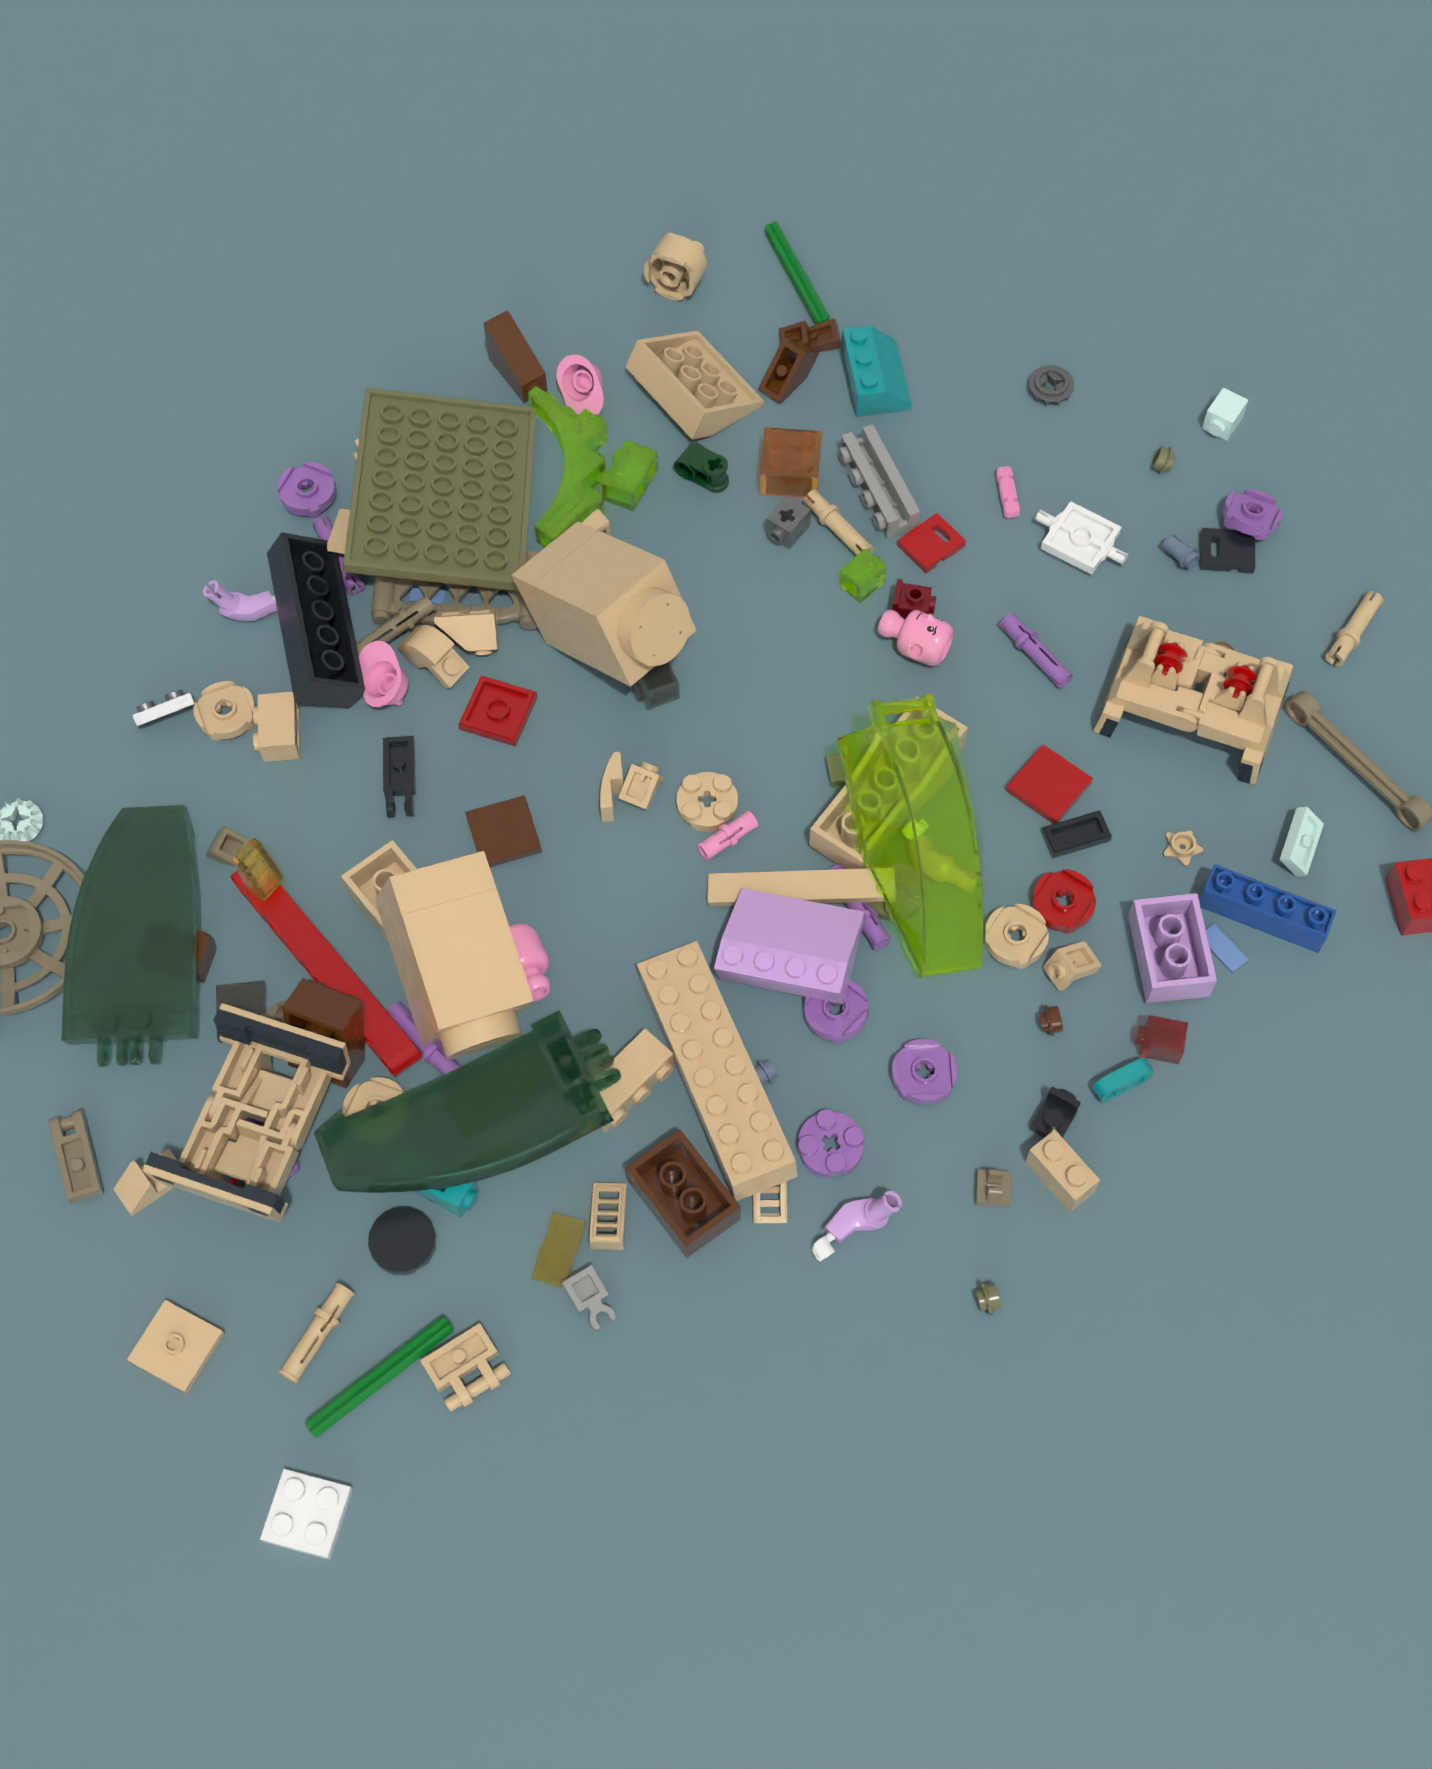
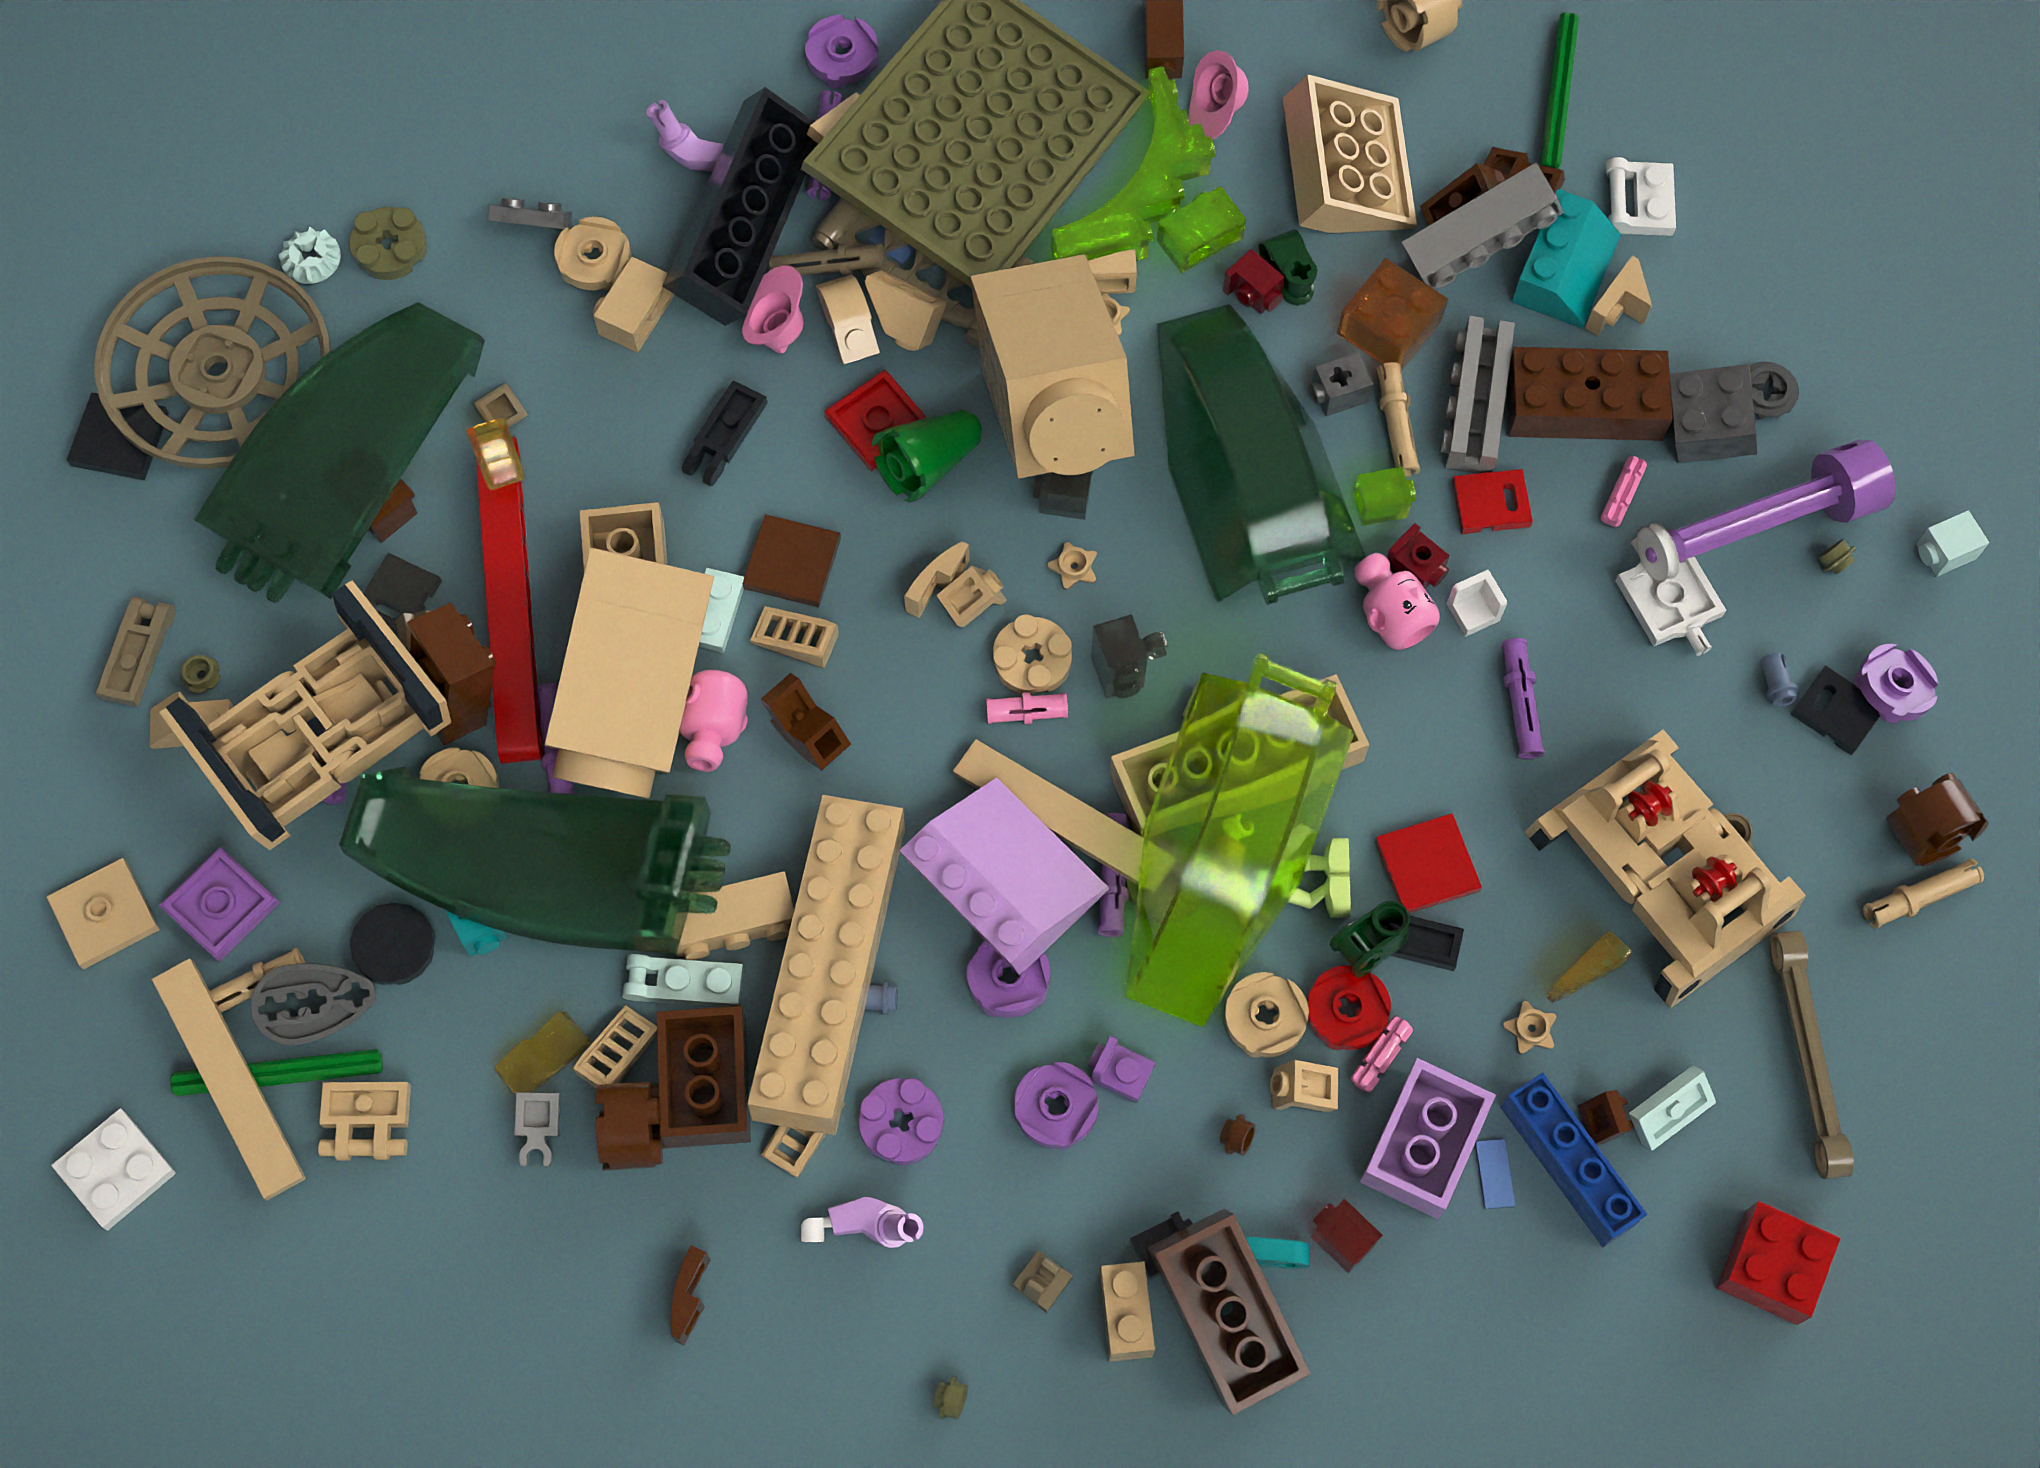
camera: 30 degrees right, 5 degrees up
(58, 771) = (381, 224): none -> olive plate
(134, 1135) = (193, 667): none -> olive plate
(259, 1288) = (219, 904): none -> medium lavender plate
(351, 1398) = (228, 1079): none -> tan tile
(380, 1329) = (301, 978): none -> dark grey piece
(546, 712) = (924, 451): none -> green cone
(553, 885) = (816, 655): none -> tan slope
(589, 931) = (803, 723): none -> reddish brown brick
(622, 1143) = (684, 981): none -> light aqua plate
(656, 1254) = (629, 1126): none -> reddish brown brick
(688, 489) = (1254, 283): none -> dark red brick
(693, 722) = (1078, 556): none -> tan plate
(762, 601) = (1248, 461): none -> clear green windscreen
(770, 764) = (1122, 655): none -> clear smoke brick
(773, 1348) = (686, 1307): none -> reddish brown slope
(813, 375) = (1483, 227): none -> light grey brick
(897, 305) = (1652, 197): none -> white plate
(928, 373) = (1626, 295): none -> tan slope
(948, 443) = (1589, 393): none -> reddish brown brick
(949, 1025) = (1120, 1069): none -> medium lavender bracket
(968, 607) = (1476, 603): none -> white panel
(1005, 827) = (1337, 885): none -> yellowish green piece
(1032, 413) = (1713, 413): none -> flat silver brick
(1052, 849) = (1367, 943): none -> dark green piece
(1104, 916) = (1381, 1054): none -> bright pink axle
(1129, 1126) = (1251, 1347): none -> reddish brown brick
(1138, 414) = (1844, 483): none -> medium lavender piece
(1194, 781) = (1601, 959): none -> clear yellow slope
(1267, 869) = (1605, 1117): none -> reddish brown tile
(1333, 579) = (1936, 820): none -> reddish brown brick

